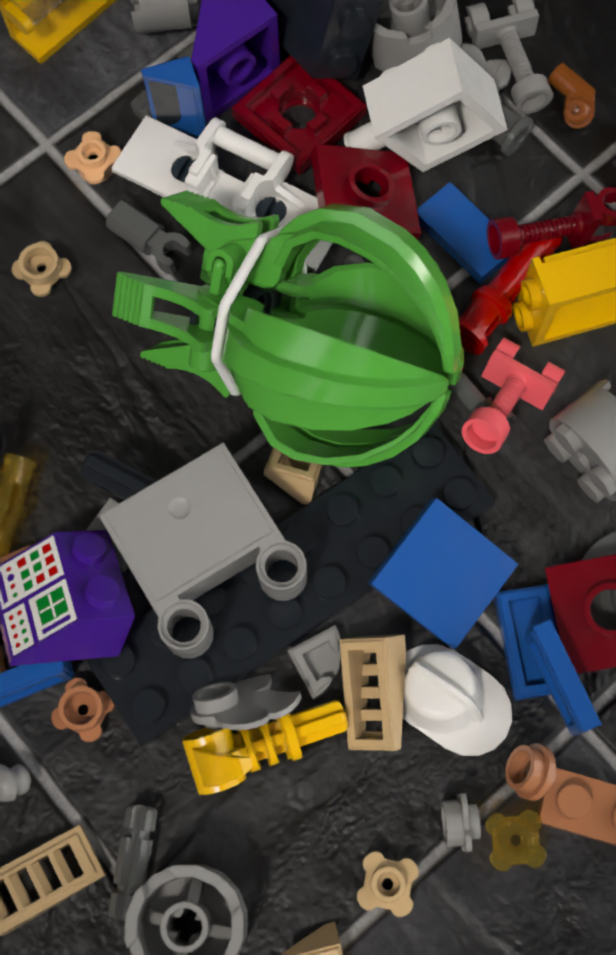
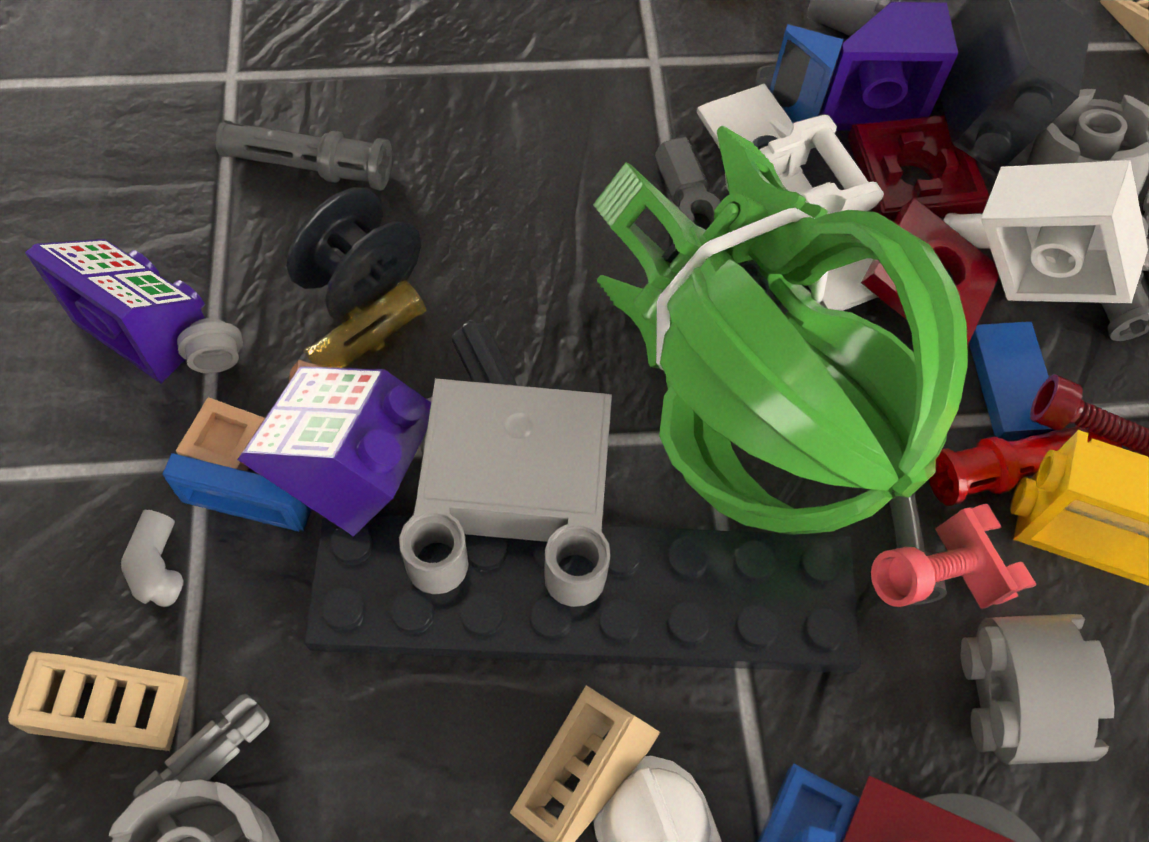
camera: 30 degrees right, 10 degrees down
(41, 255) = (567, 151): tan plate -> none
(68, 714) = (267, 554): nougat plate -> none
(93, 170) = (686, 93): light nougat plate -> none
(223, 758) = (371, 713): yellow piece -> none
(241, 704) = (435, 678): light grey plate -> none
(293, 476) = (665, 491): tan slope -> none
(318, 661) = (548, 694): light grey tile -> none
(443, 573) = (749, 699): blue tile -> none

